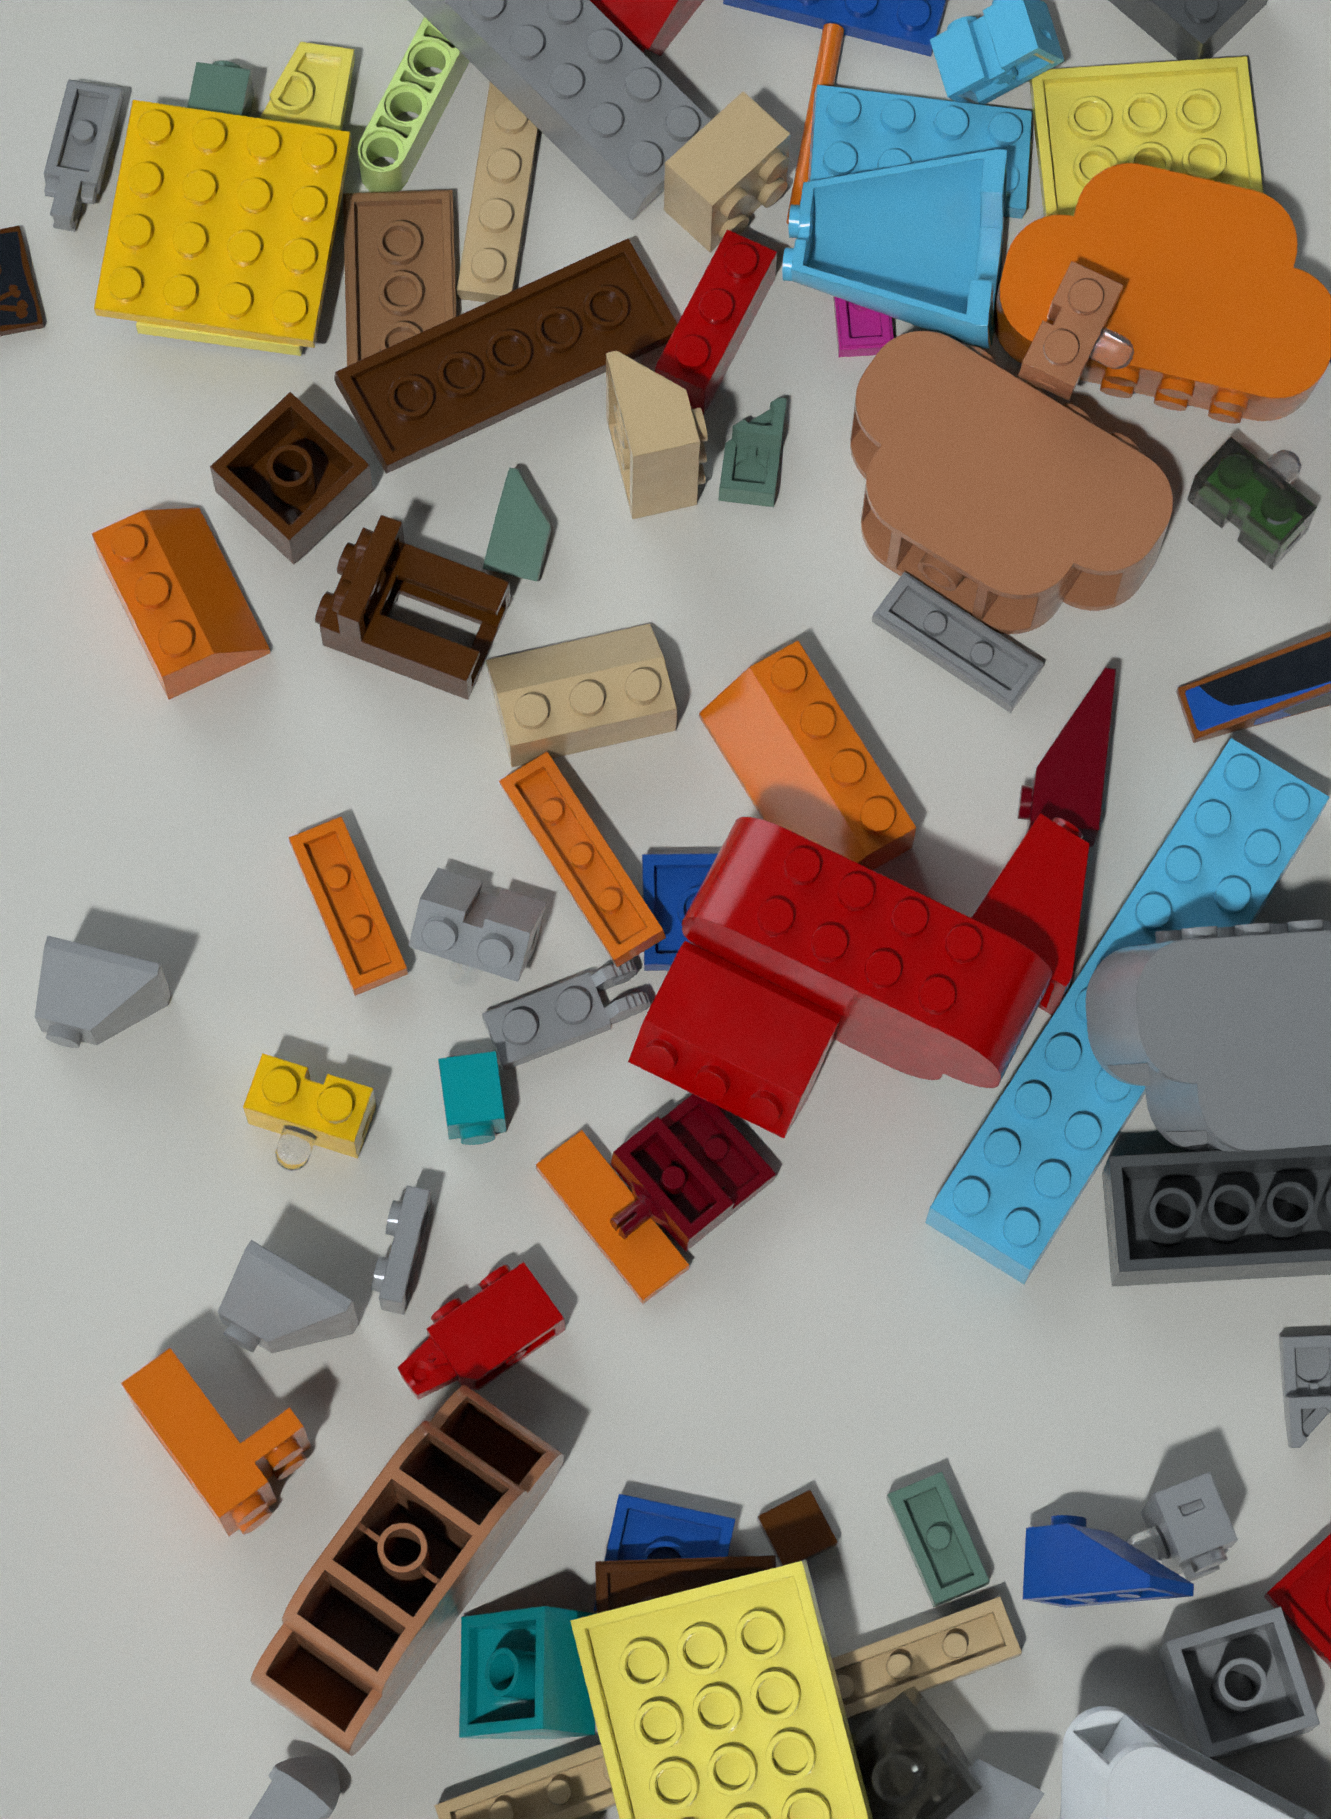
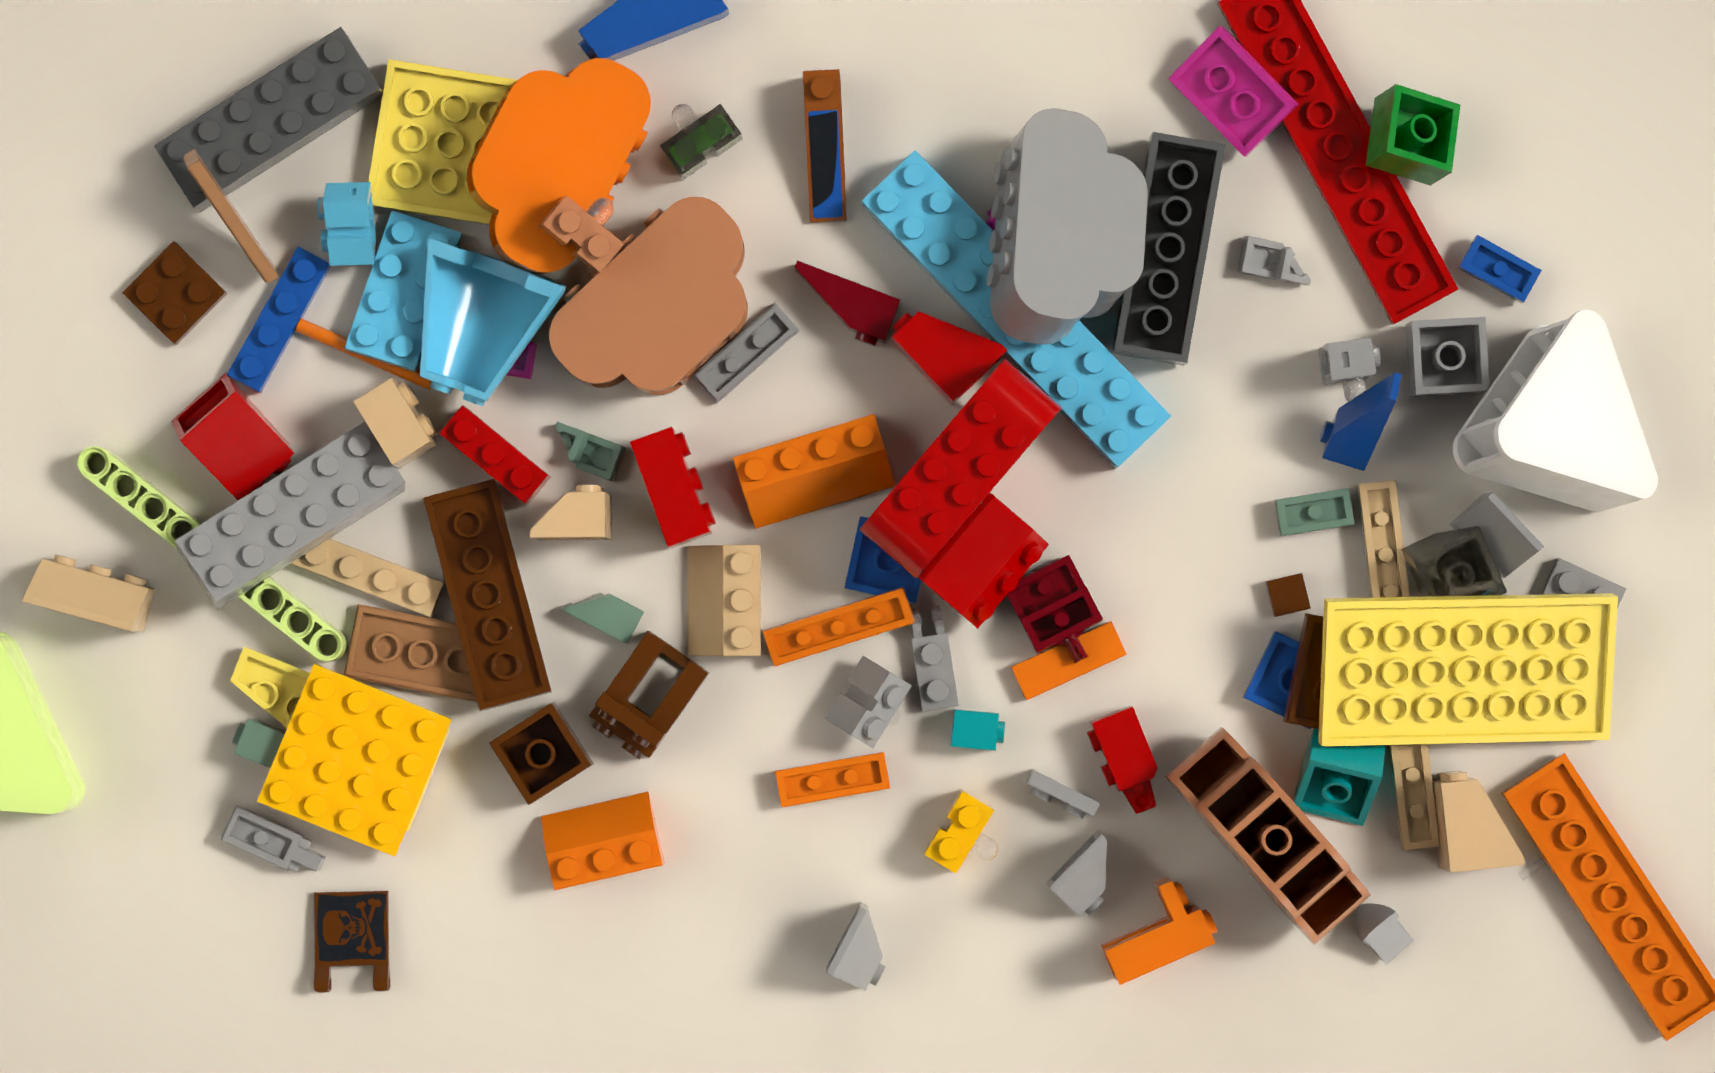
camera: 75 degrees left, 15 degrees up
(730, 568) = (673, 486): none -> red brick

